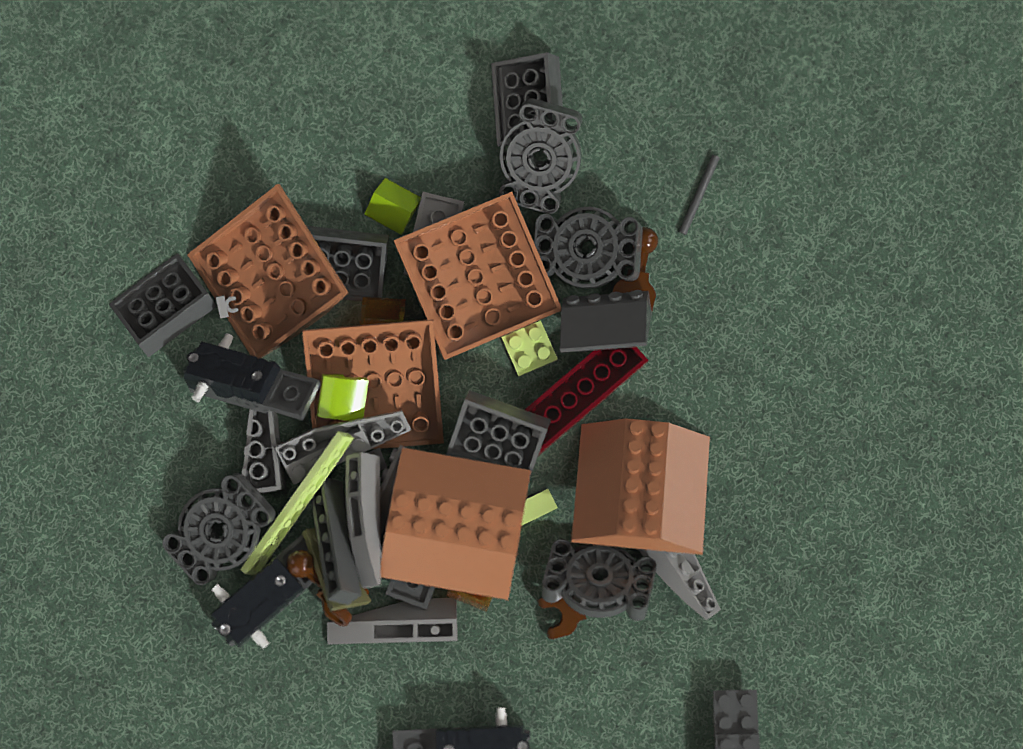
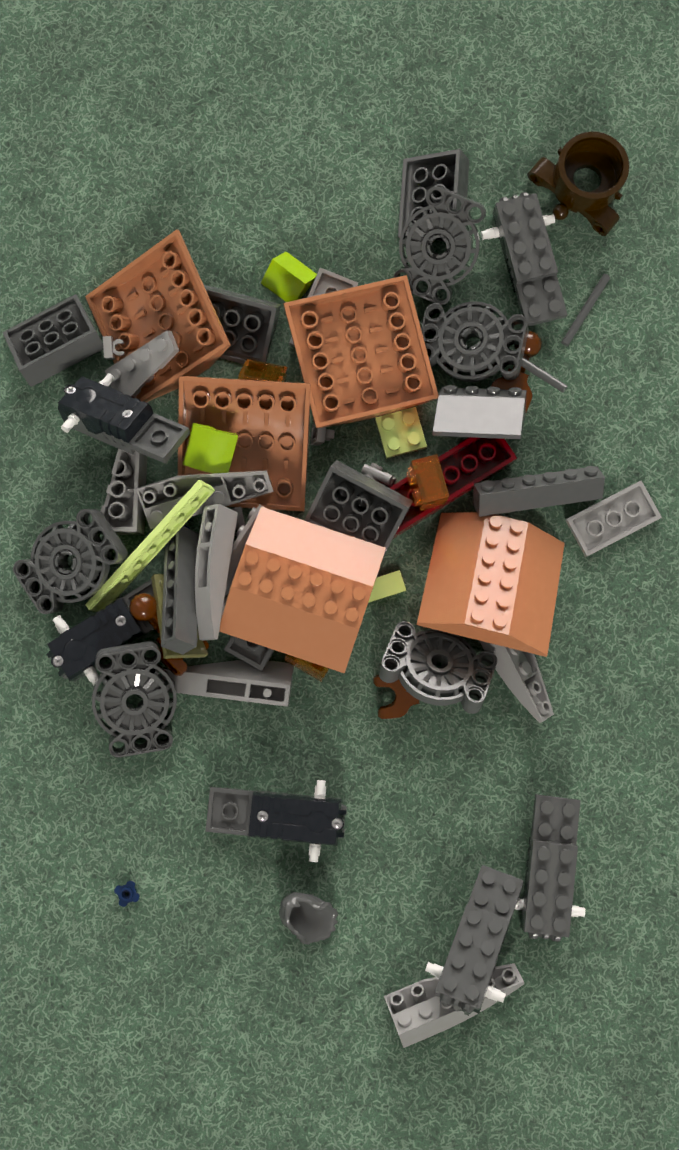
camera: 10 degrees right, 0 degrees up
(258, 321) = (141, 365): none -> light grey wing
(294, 637) = (134, 677): none -> dark grey piece
(447, 366) = (319, 435): none -> light grey tile
(509, 395) = (375, 472): none -> light grey plate
(562, 400) = (428, 482): none -> clear orange piece
(633, 152) = (528, 256): none -> dark grey piece
(653, 63) = (589, 151): none -> dark brown piece
(662, 271) = (543, 375): none -> dark grey bar
(674, 389) = (538, 491): none -> dark grey brick
(754, 405) = (613, 518): none -> light grey plate

